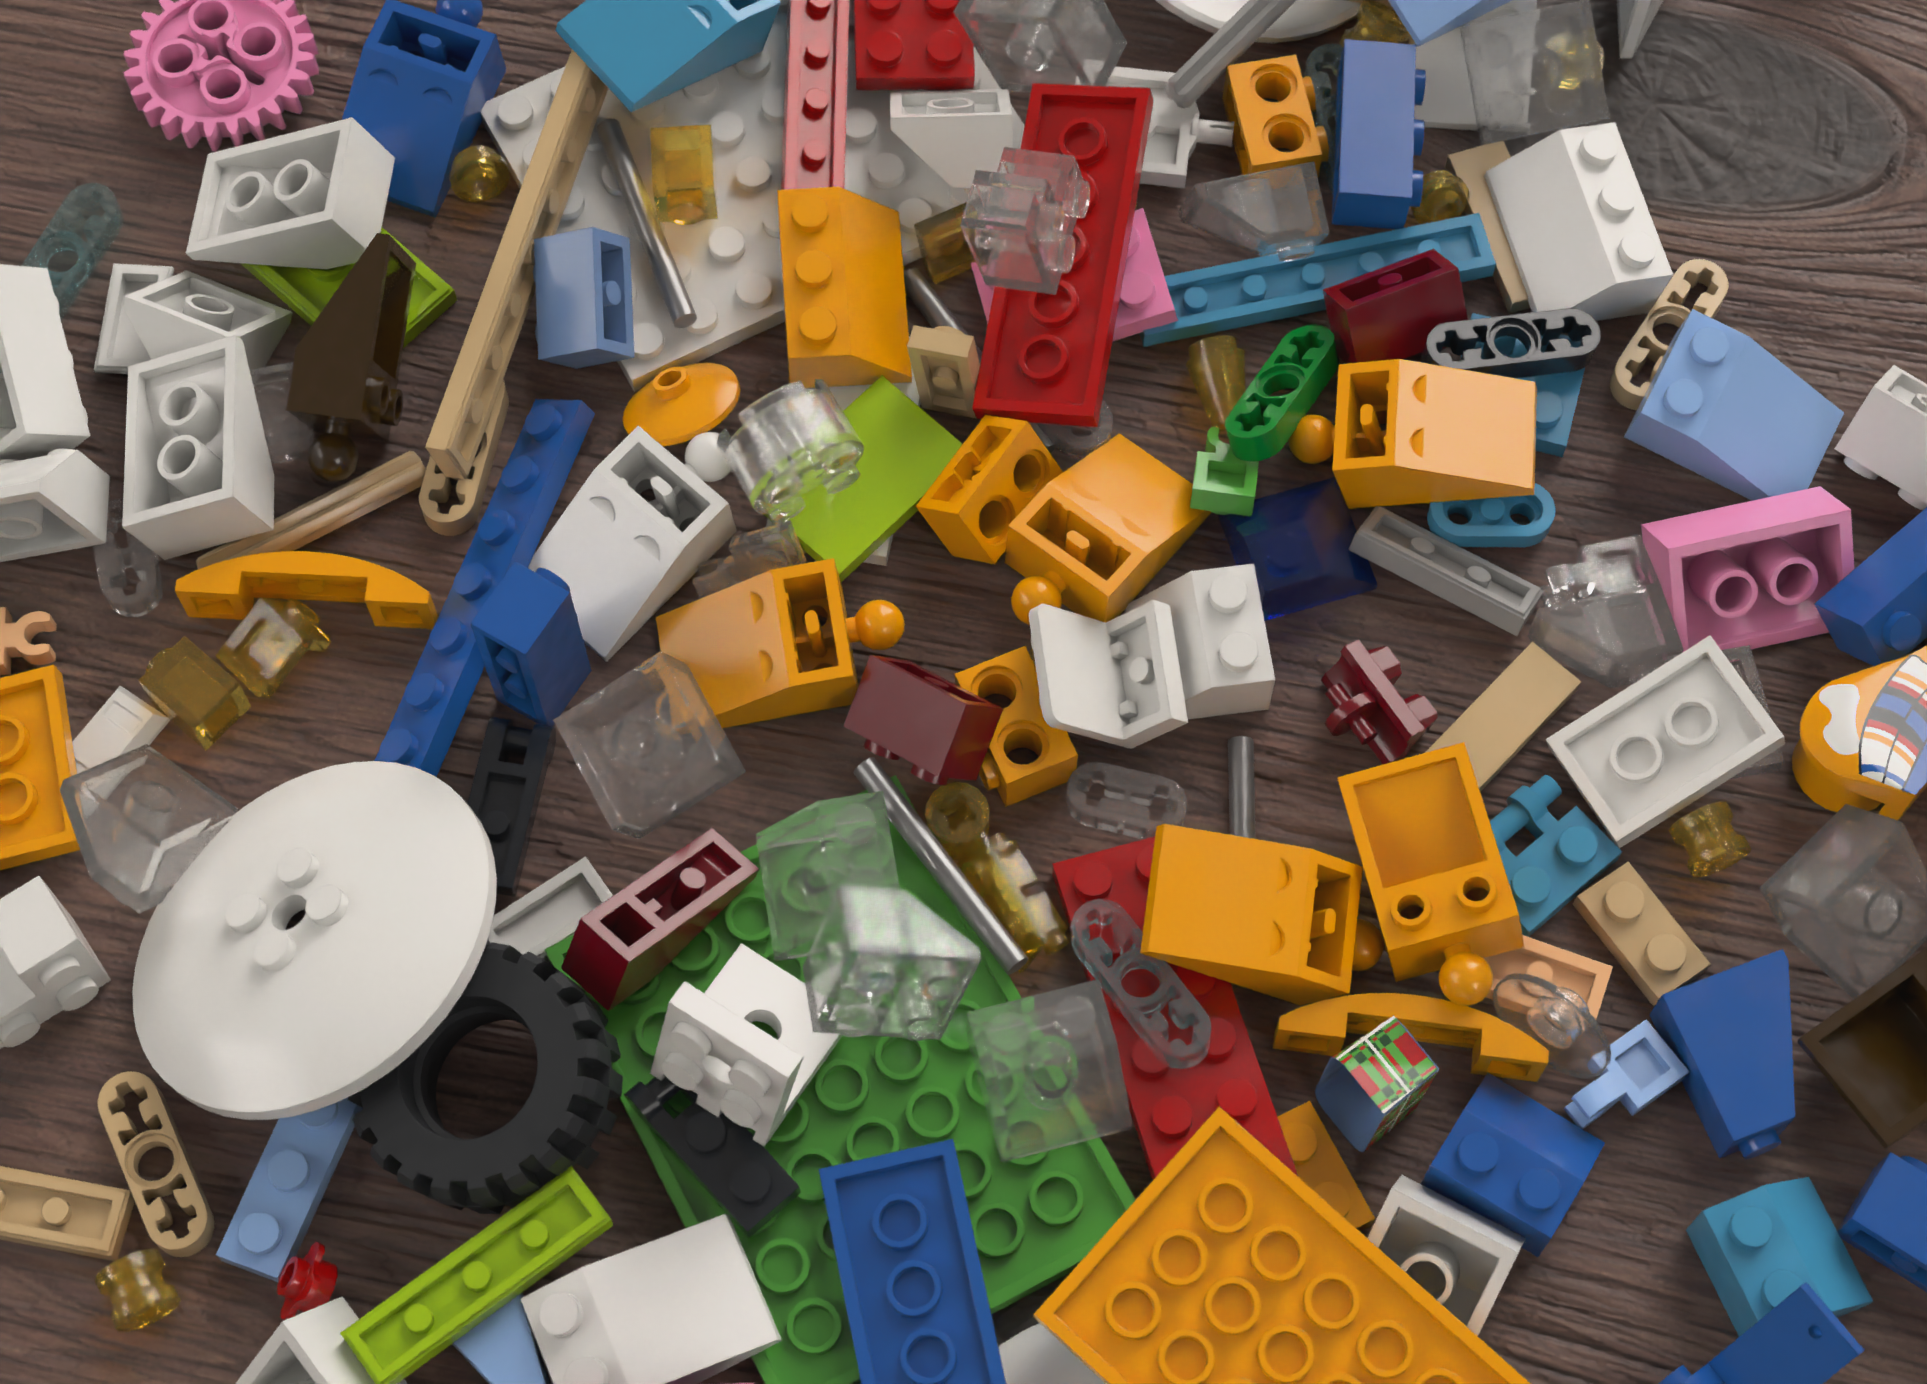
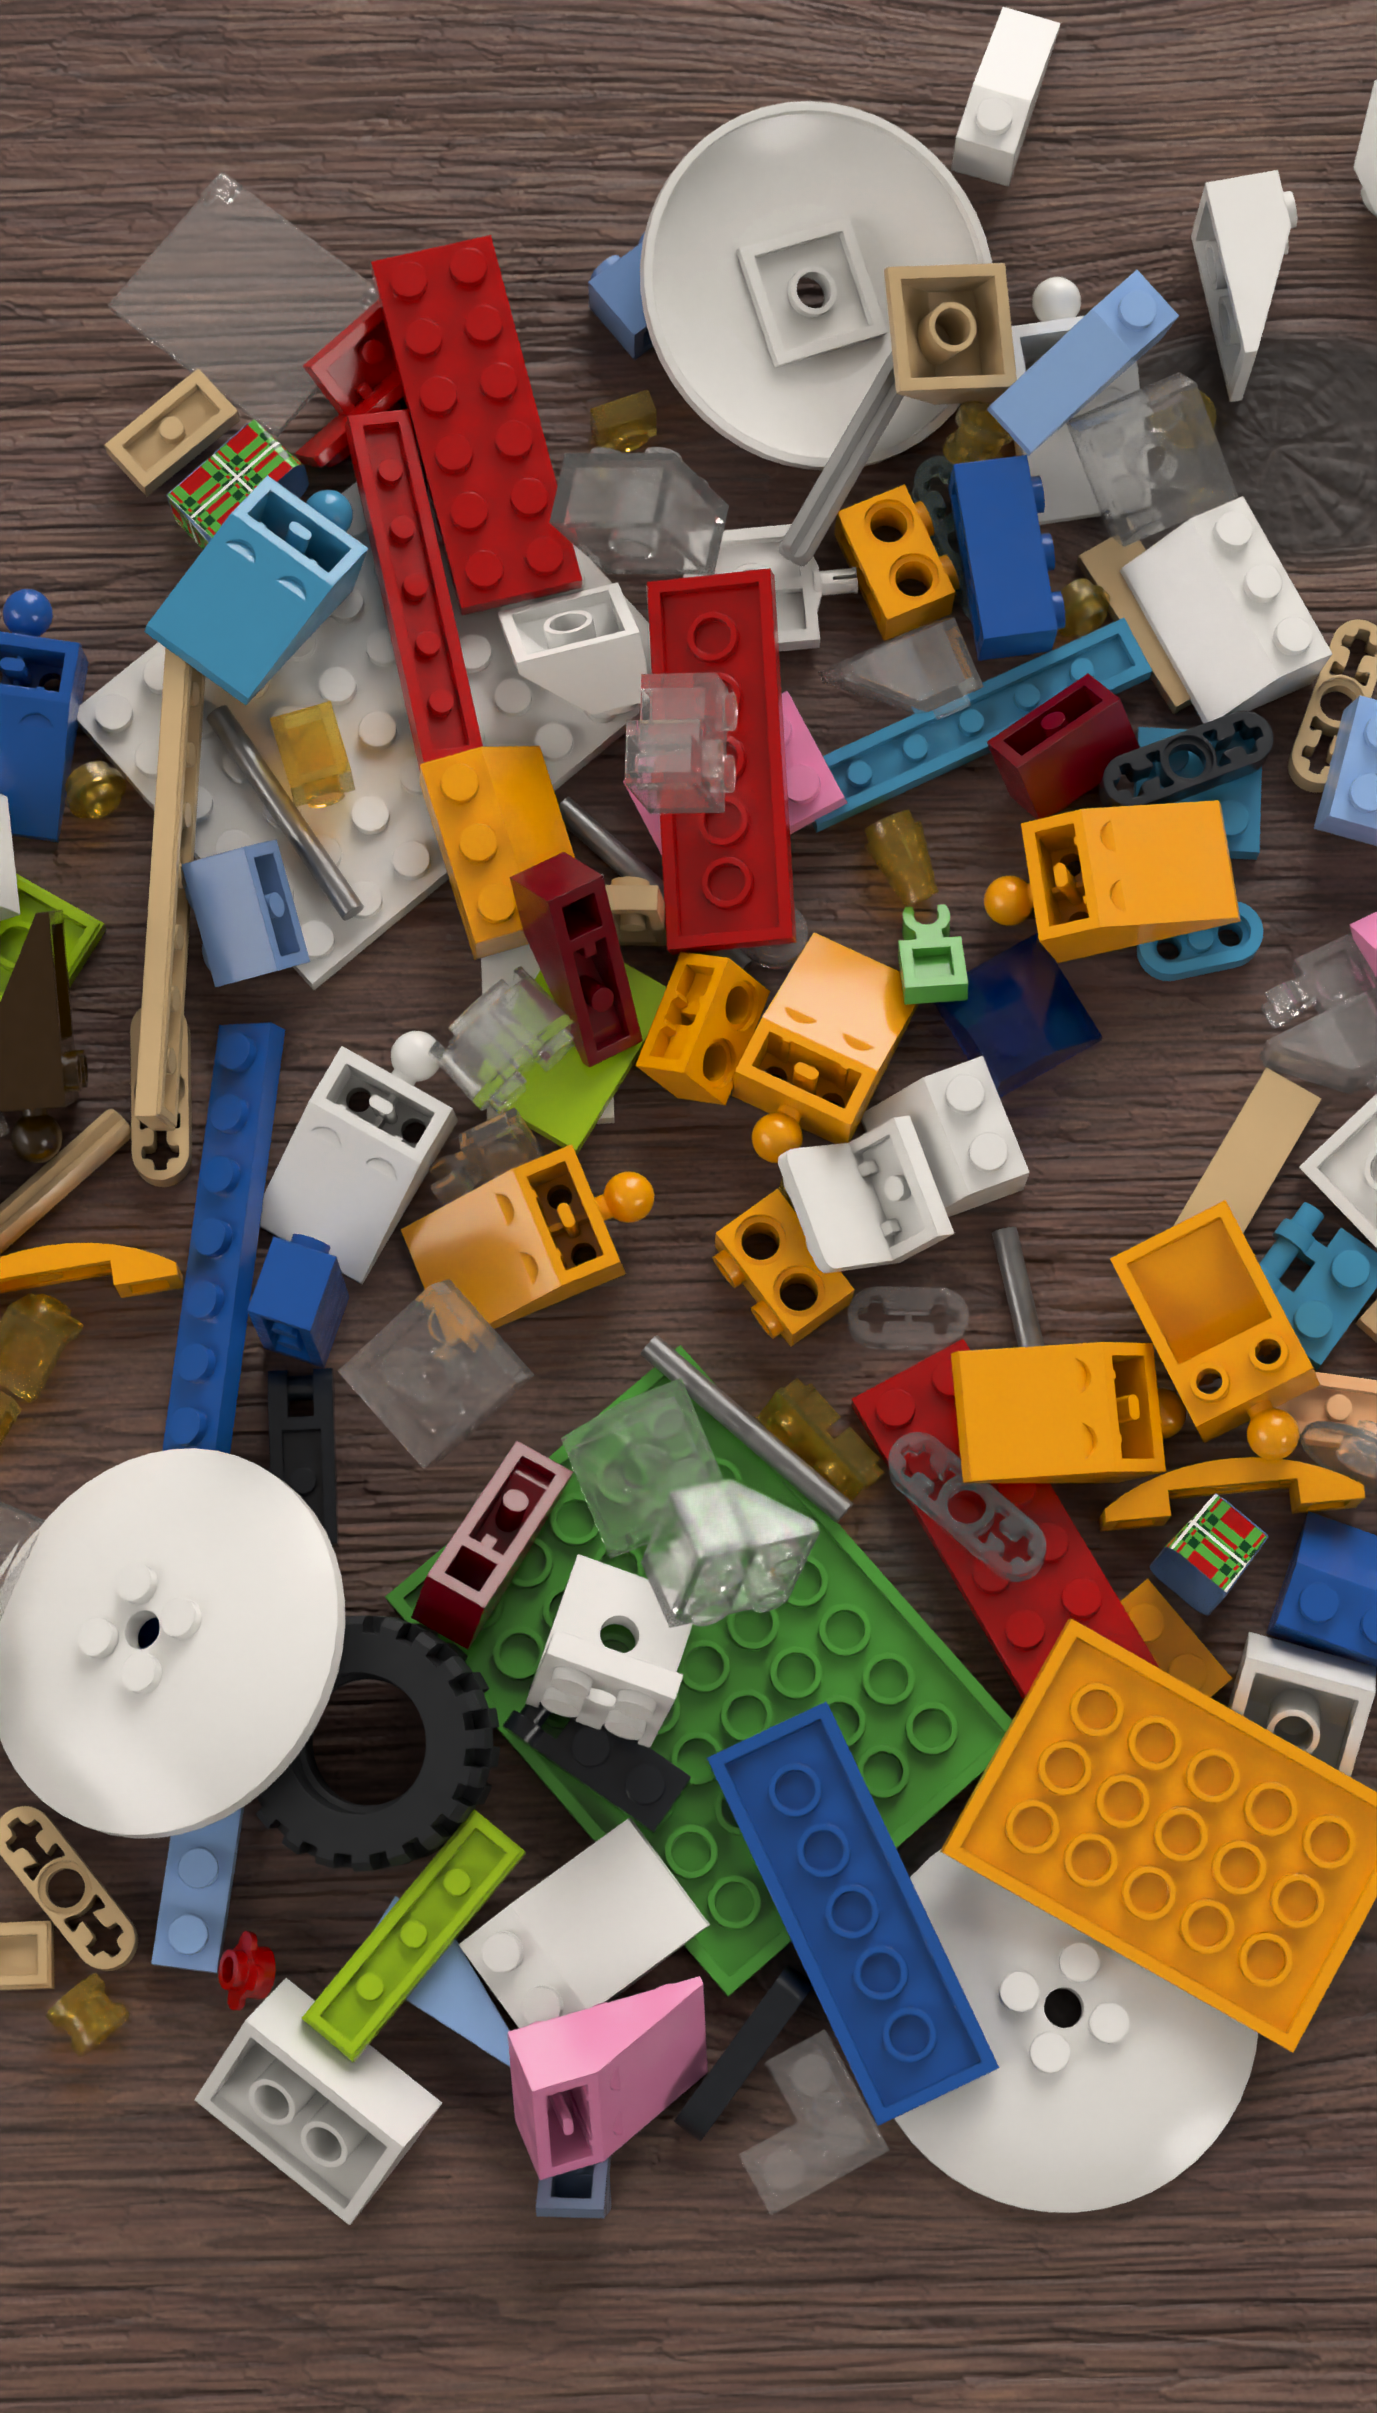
camera: 15 degrees left, 10 degrees up
(550, 910) = (385, 1555): white tile -> none
(683, 402) = (370, 1000): light orange dish -> none
(884, 386) = (579, 953): none -> dark red slope
(922, 719) = (695, 1287): dark red brick -> none
(944, 244) = (596, 764): clear yellow plate -> none
(957, 832) = (749, 1387): clear yellow wheel -> none
(1049, 1070) = (900, 1612): clear slope -> none
(1245, 425) = (974, 883): green beam -> none
(1371, 706) = (1124, 1169): dark red hips -> none
(1446, 570) = (1168, 1011): light grey tile -> none

